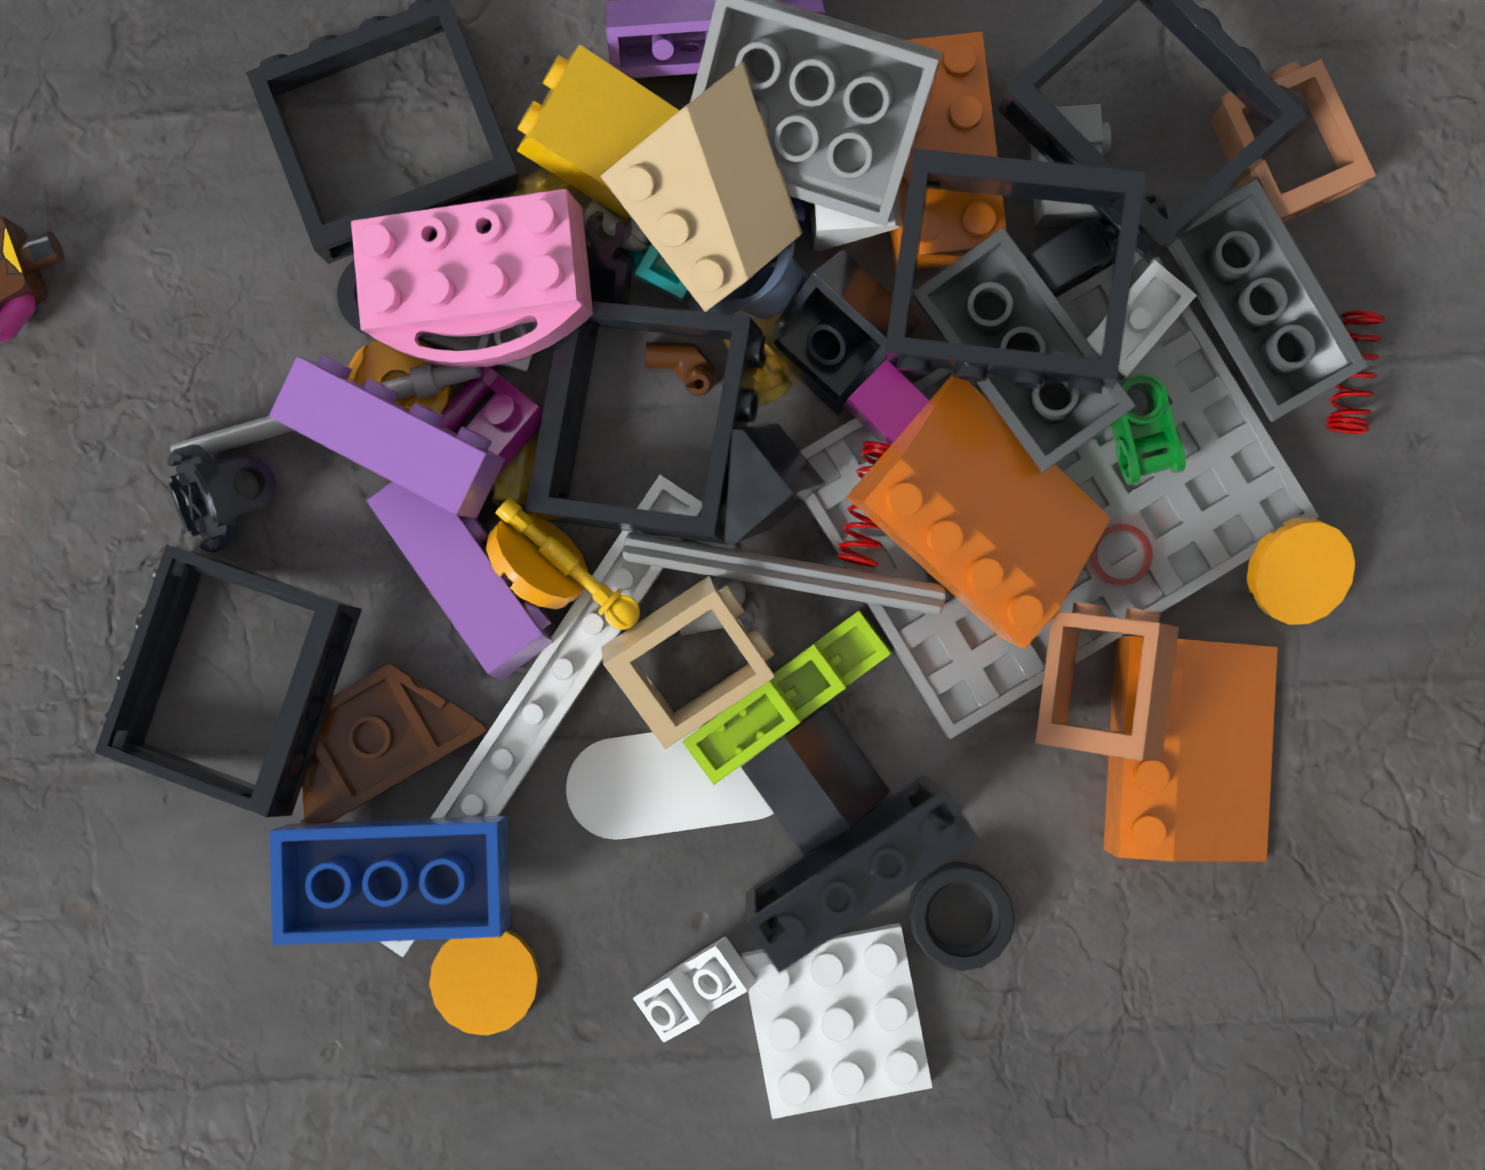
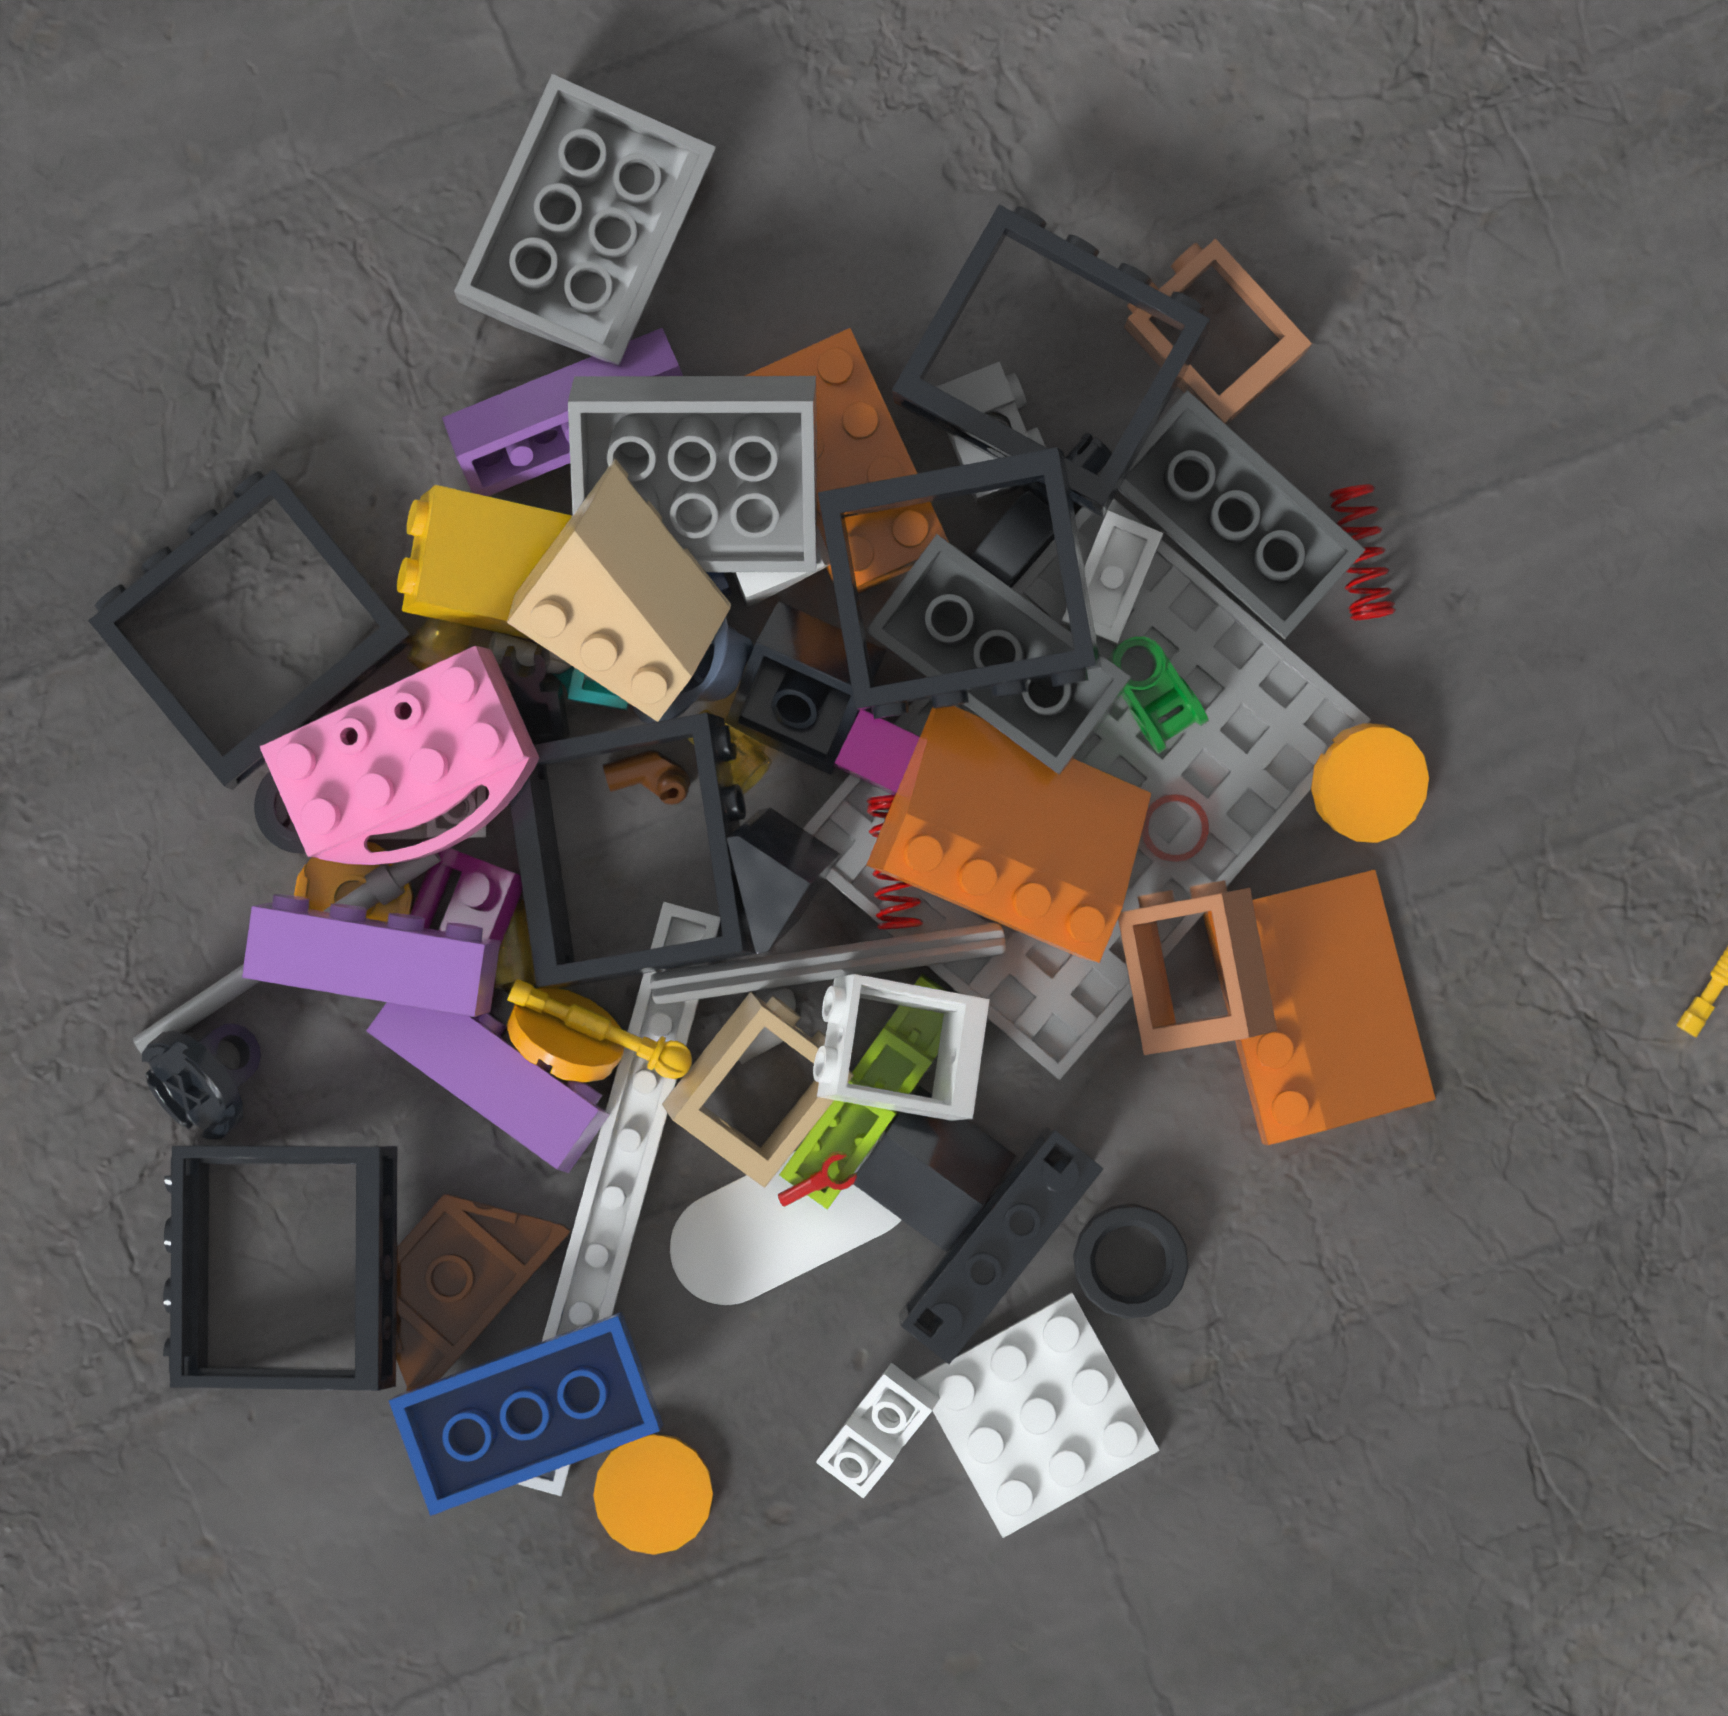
camera: 20 degrees left, 0 degrees up
(713, 759) = (817, 1182): none -> red hand
(871, 689) = (957, 1056): none -> white window

